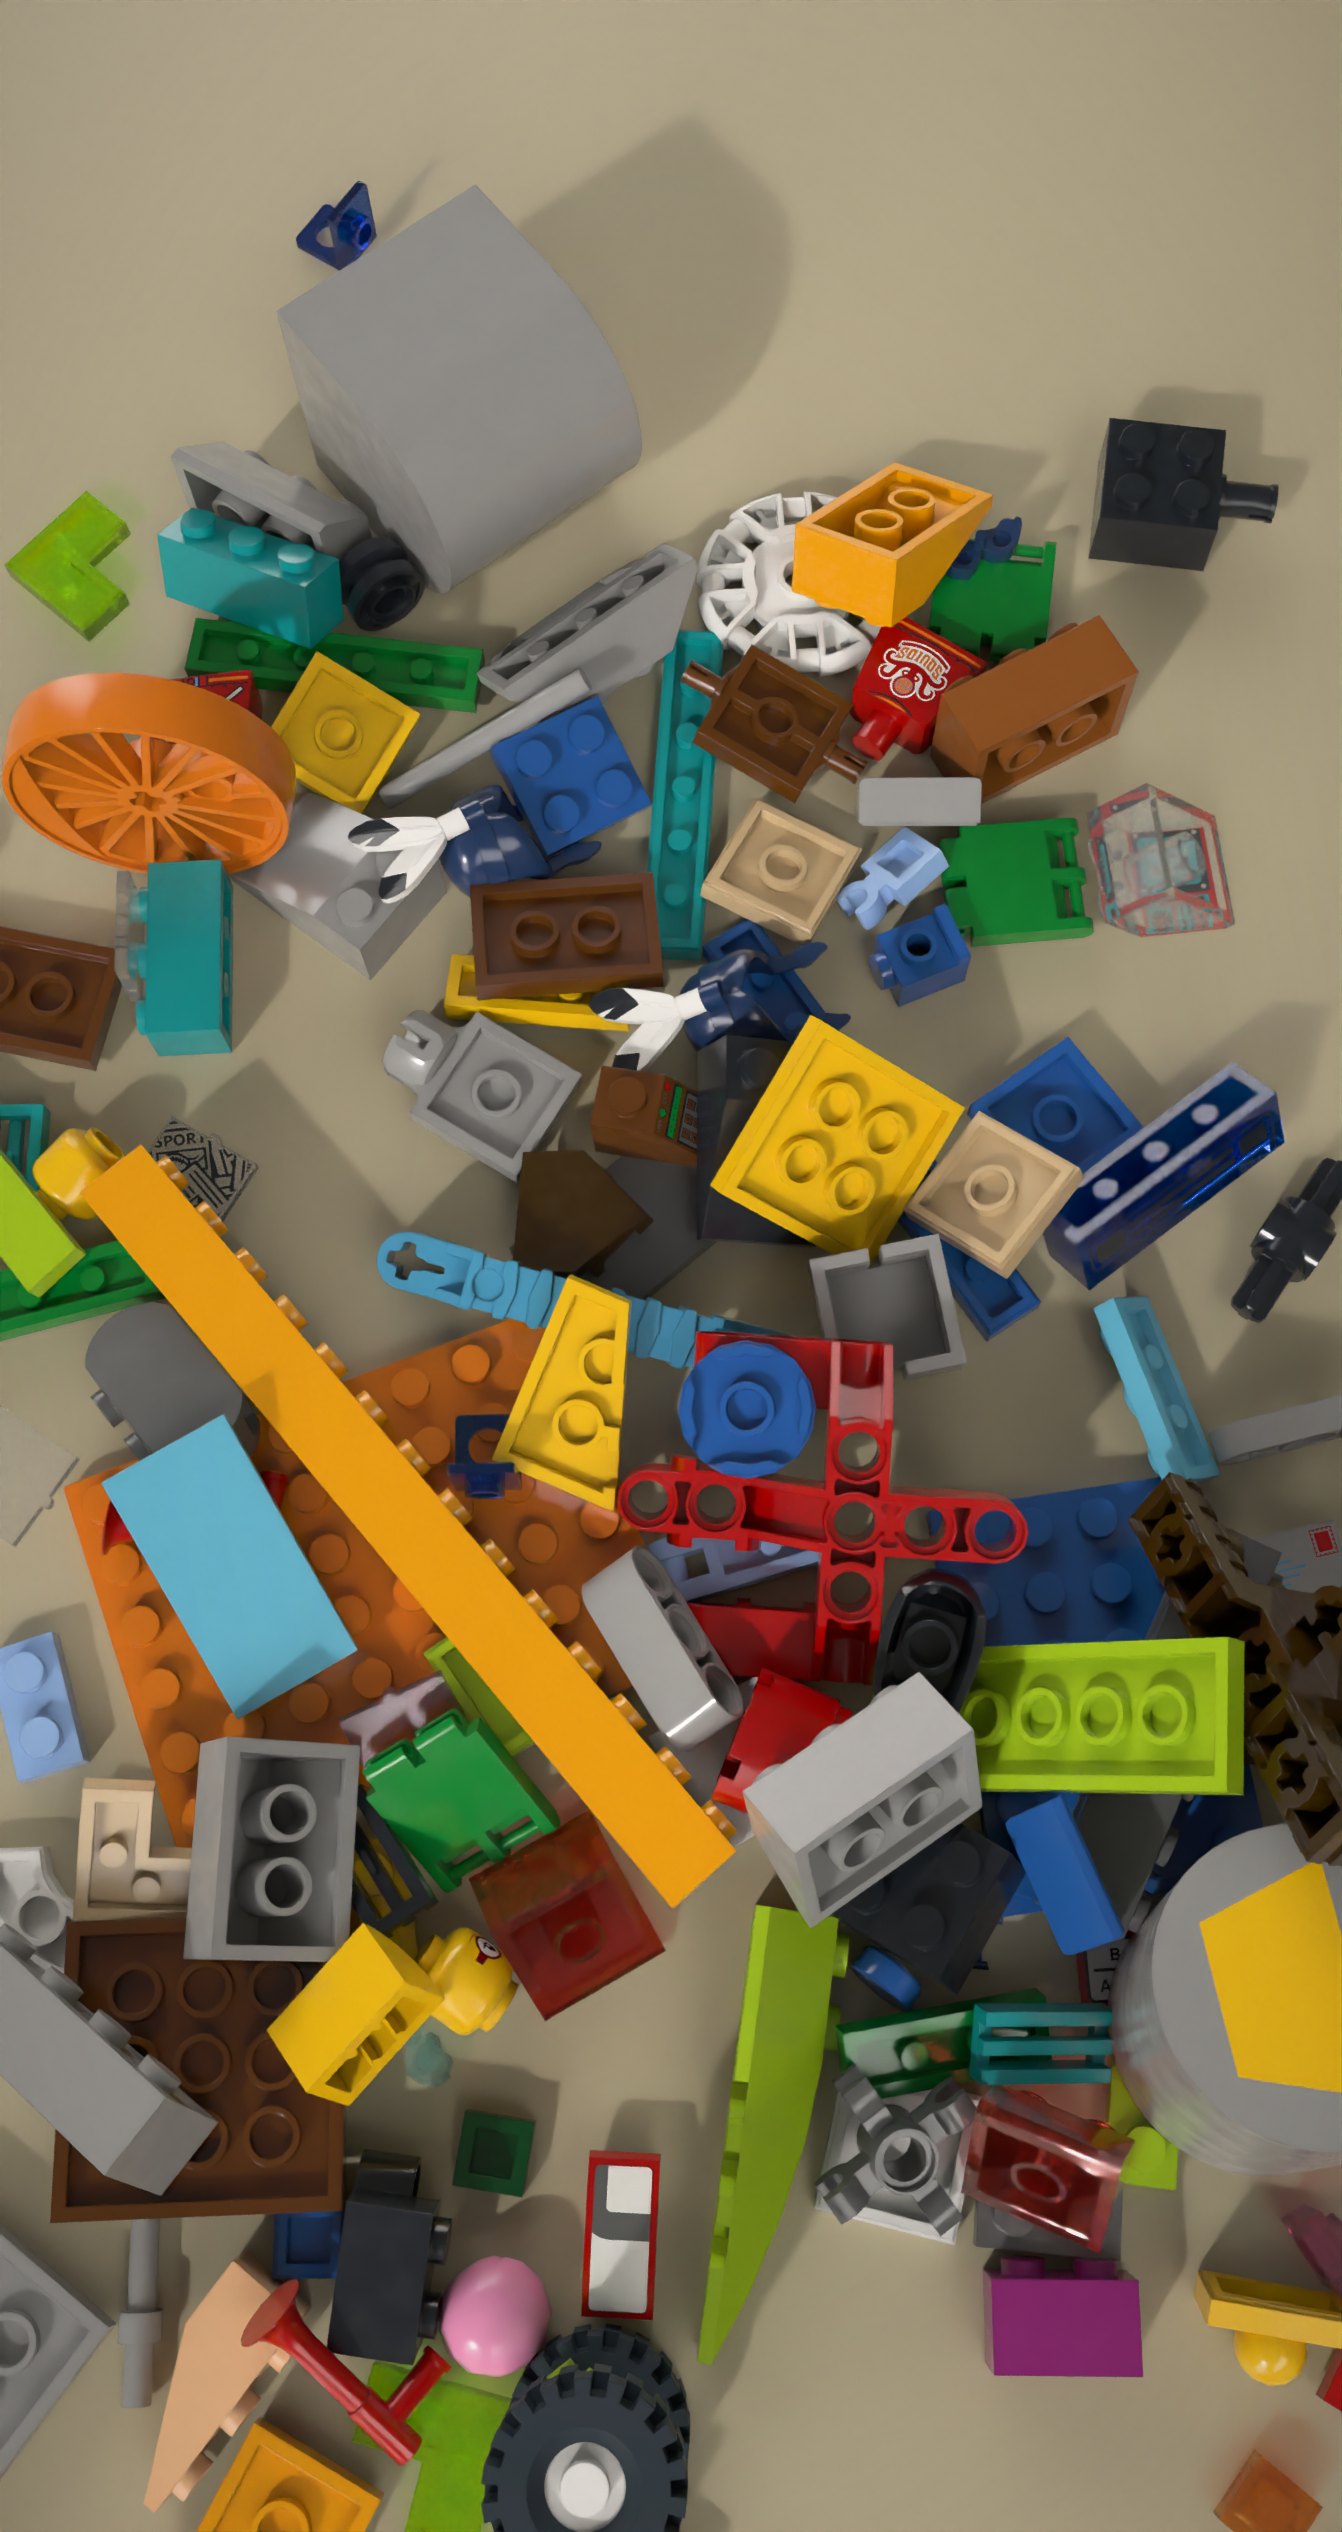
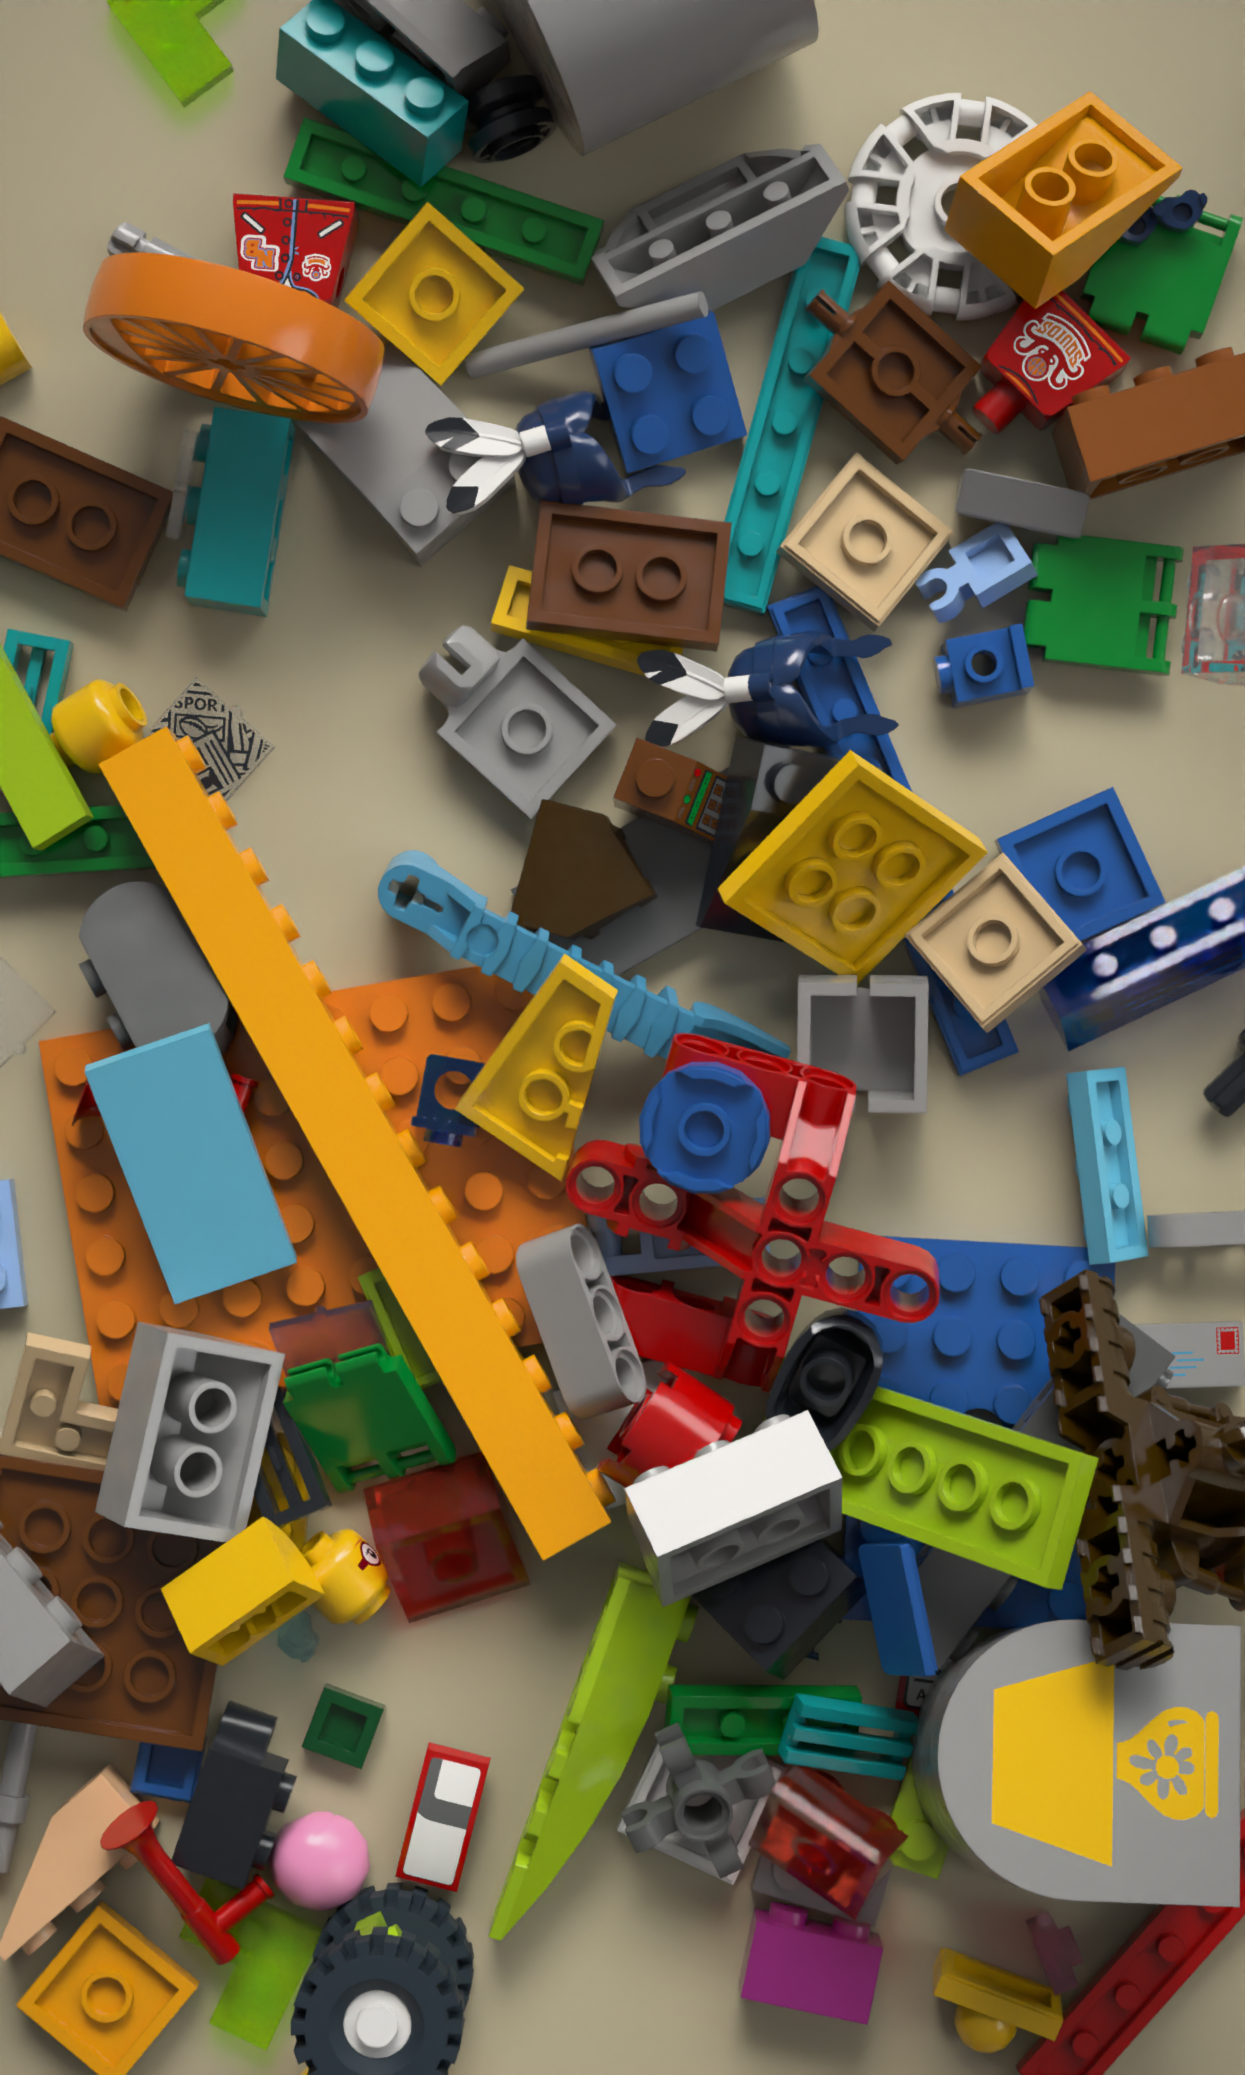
camera: 10 degrees right, 15 degrees up
(887, 1978) = (724, 1651): blue tile -> none

